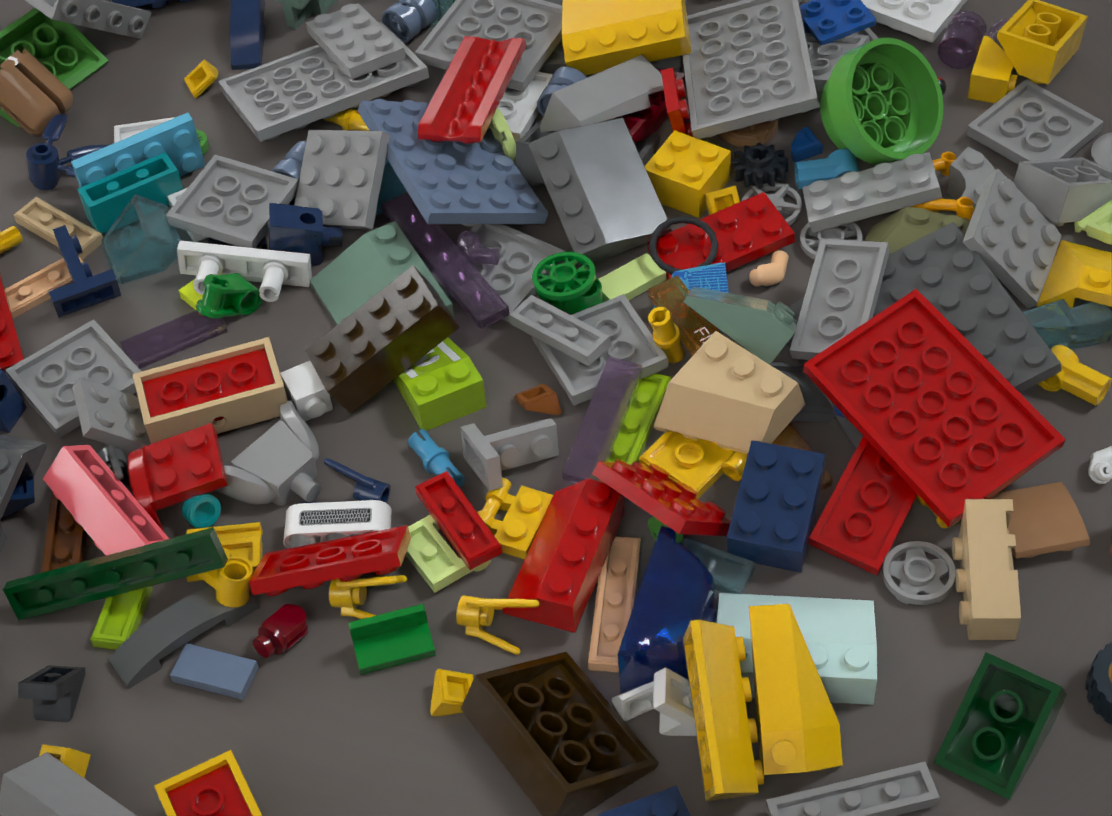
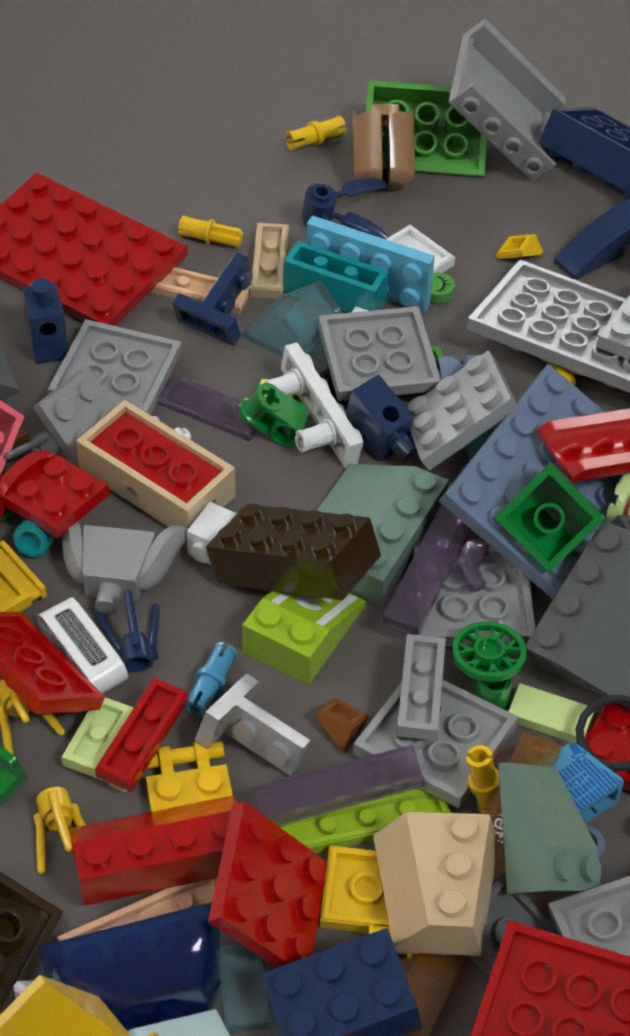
camera: 50 degrees right, 0 degrees up
(496, 168) = (550, 517): none -> green slope

